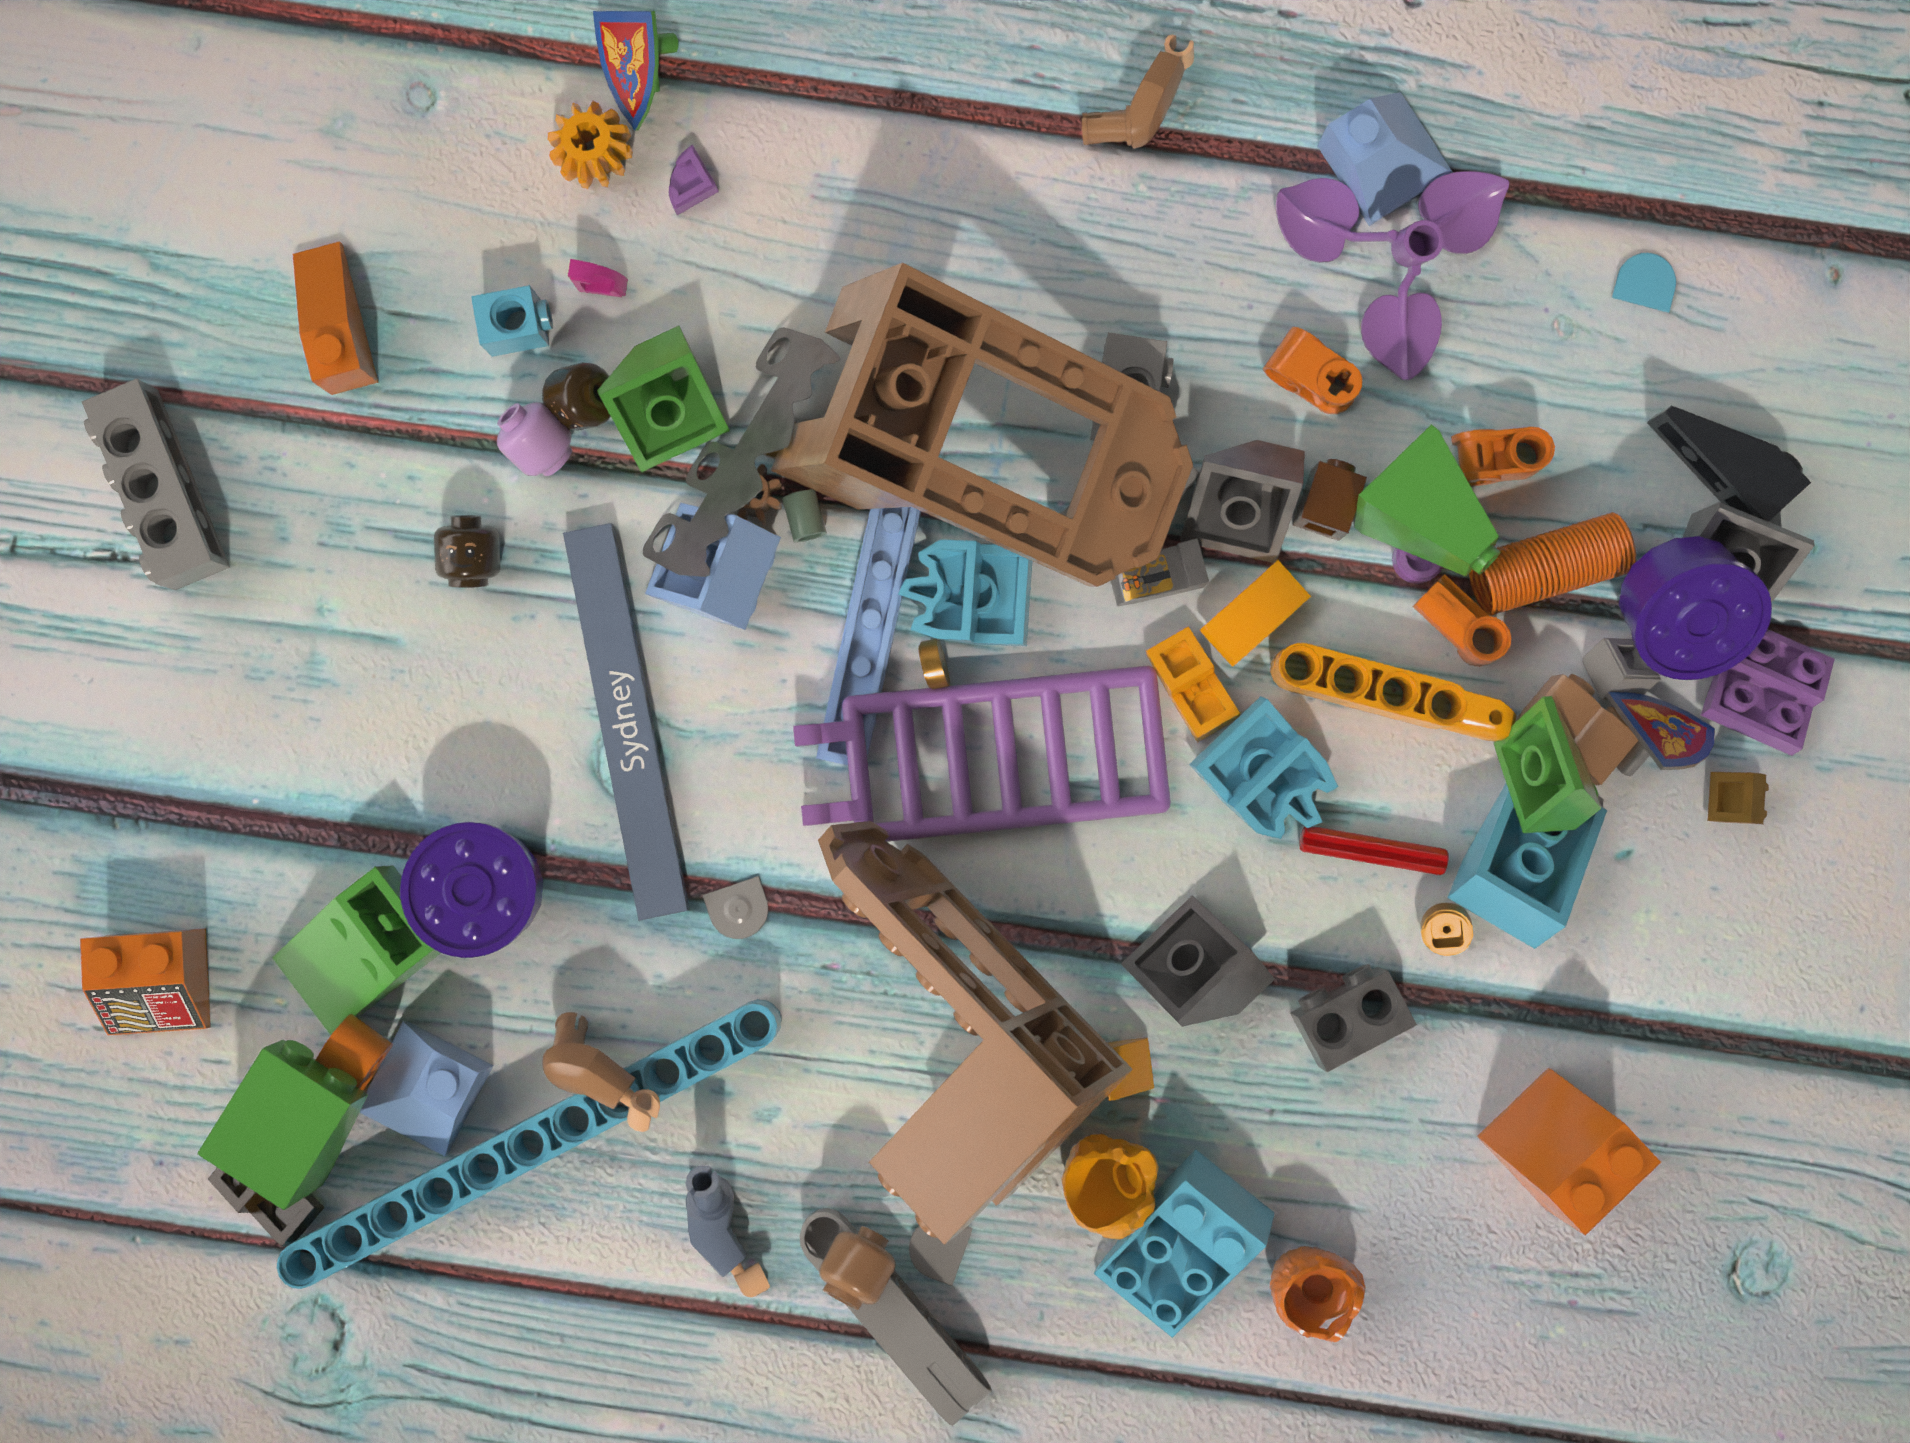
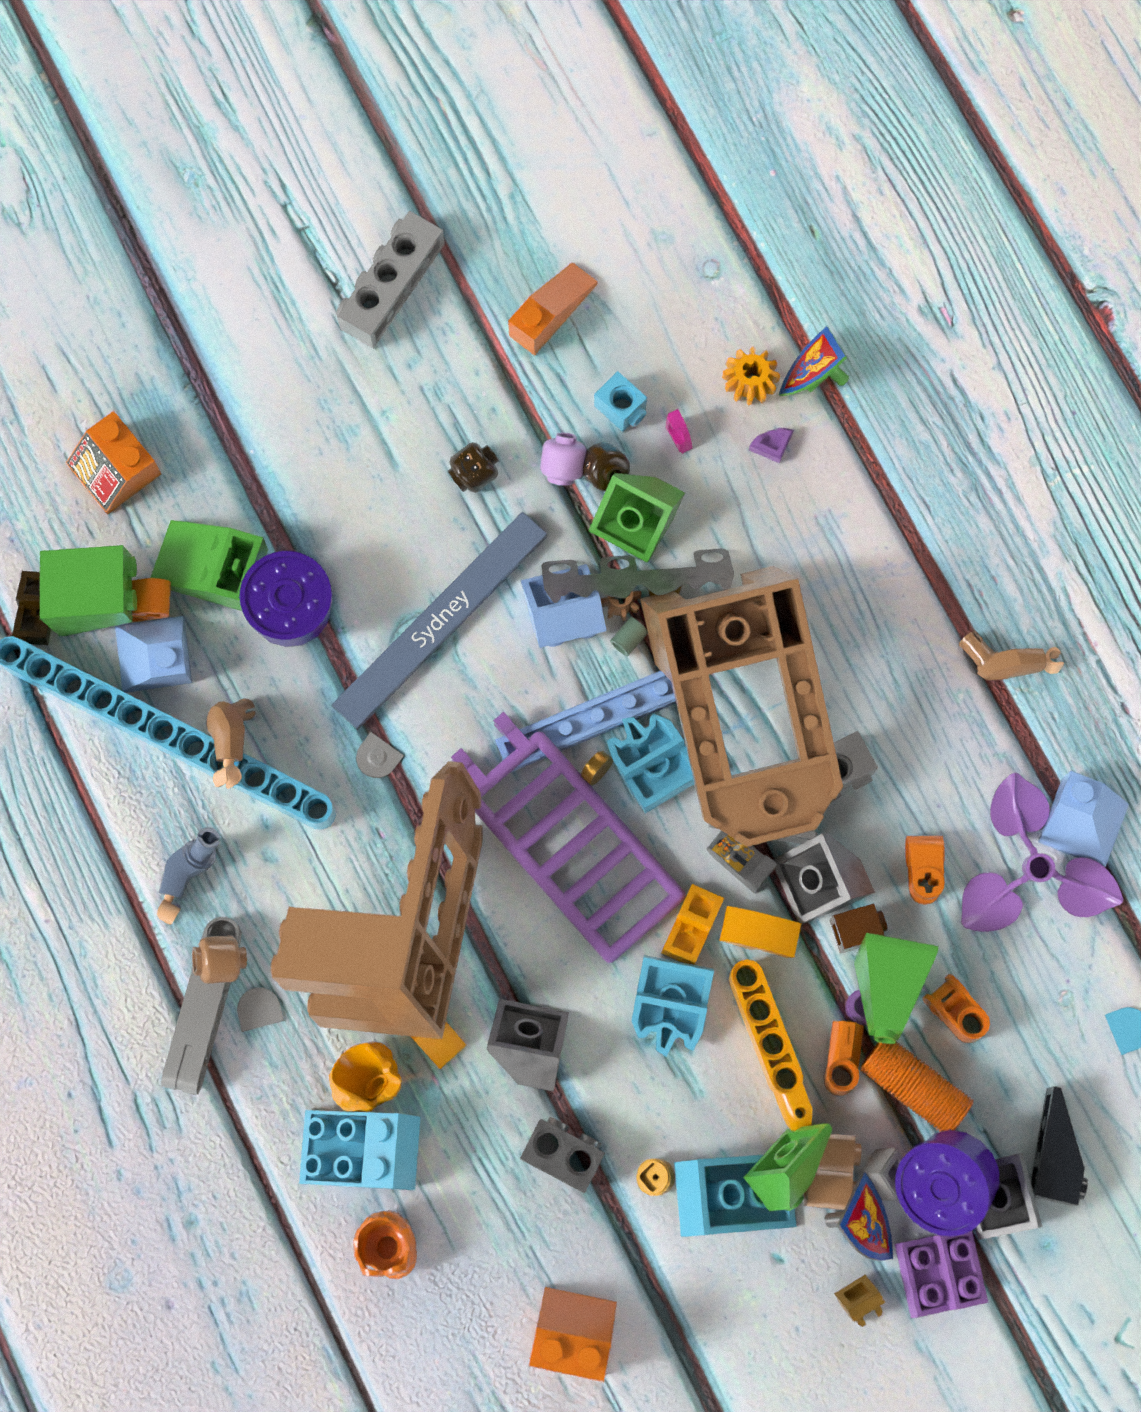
camera: 50 degrees right, 10 degrees down
(1374, 850) = (671, 1101): red axle -> none

